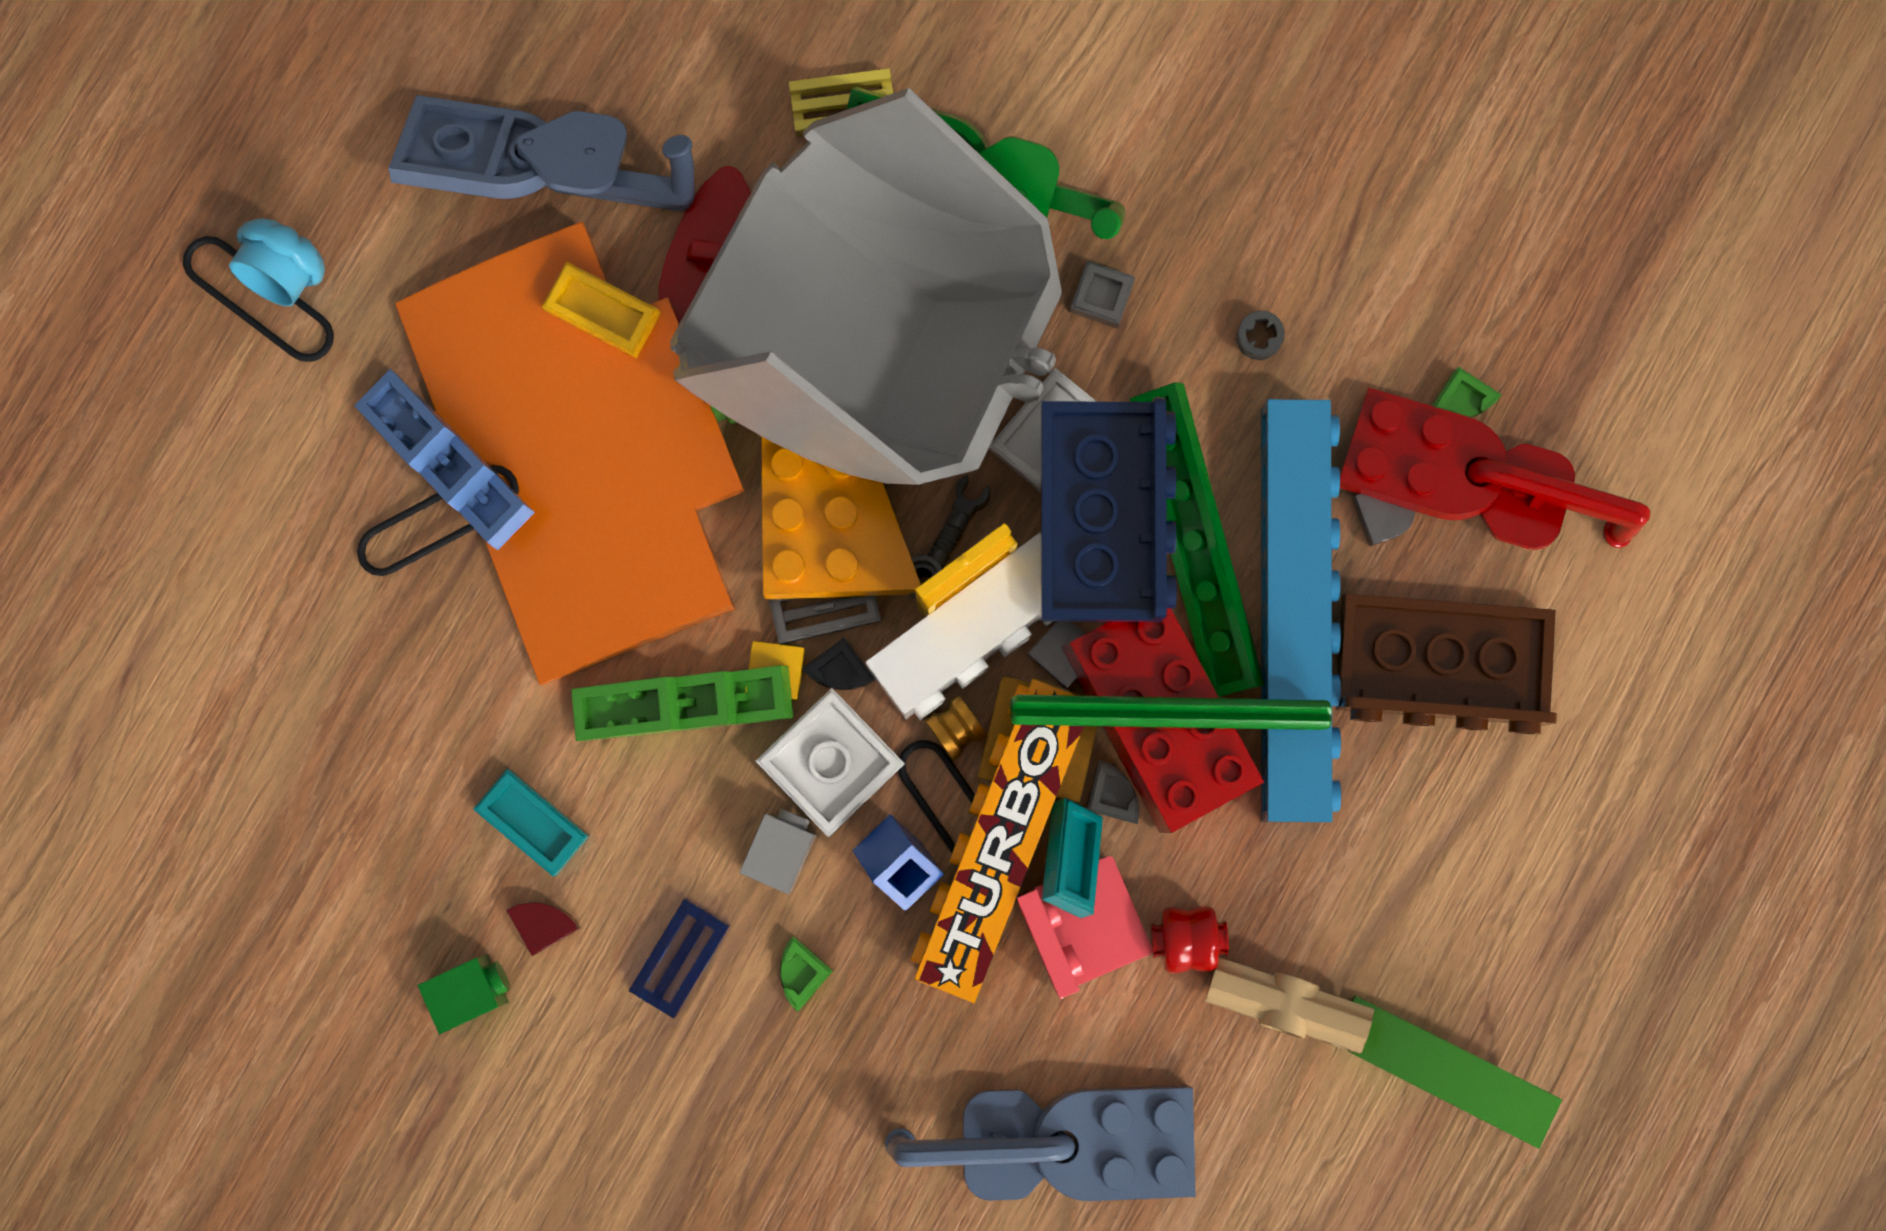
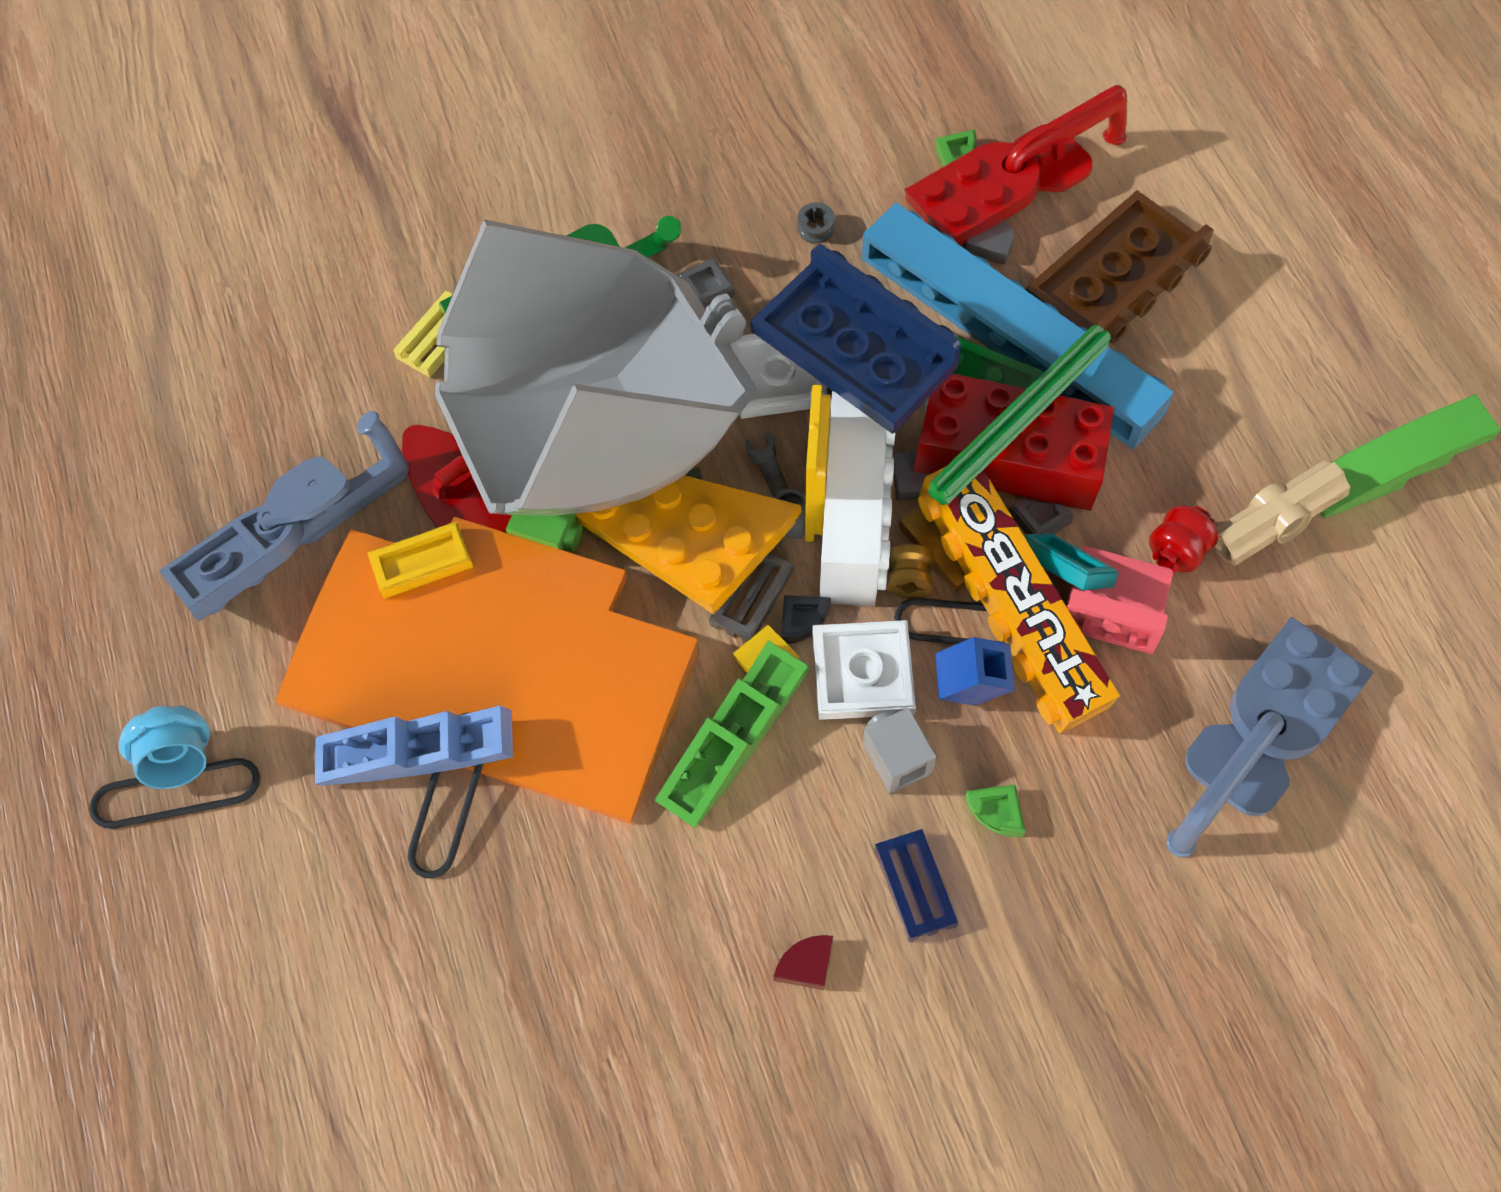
camera: 45 degrees left, 20 degrees down
(465, 992) = (810, 1057): green brick -> none
(531, 822) = (724, 909): teal tile -> none

